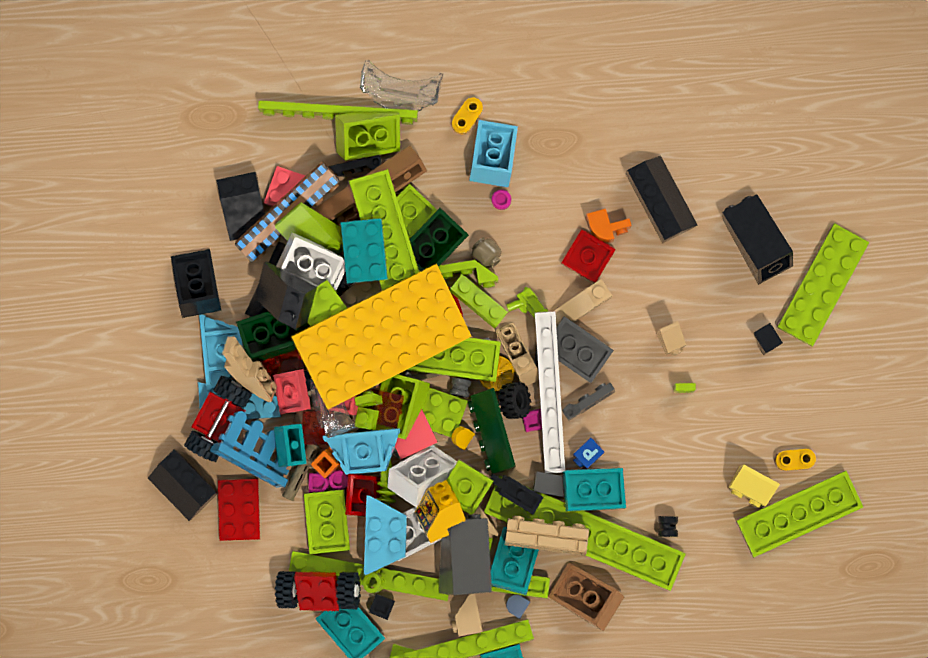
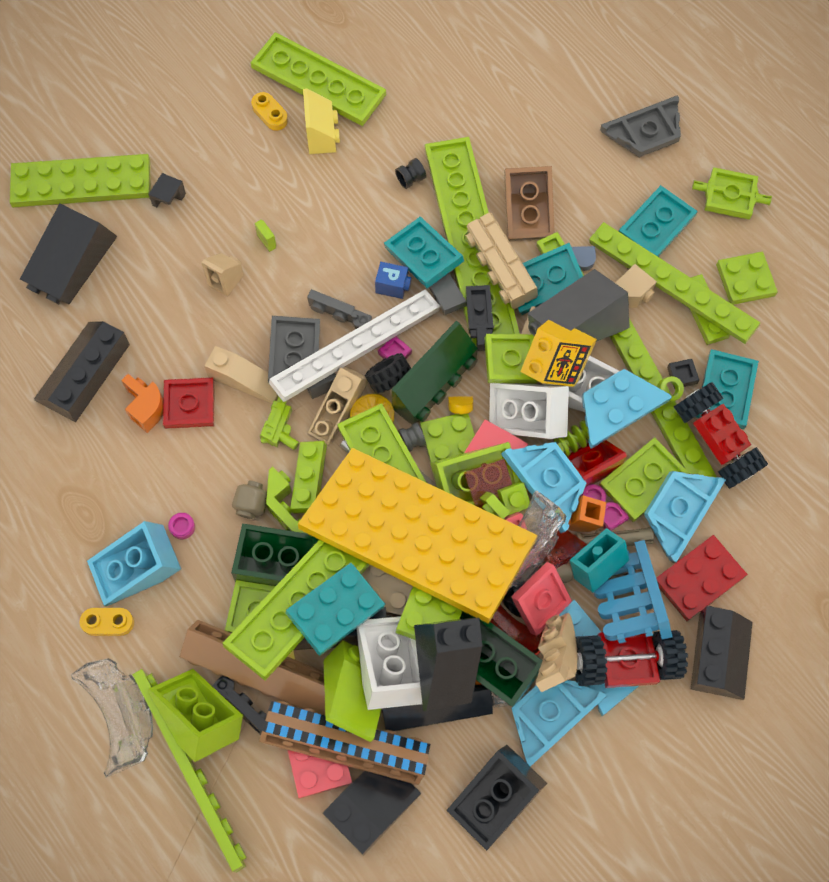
camera: 125 degrees left, 15 degrees down
(290, 529) = (680, 509): none -> medium azure wing

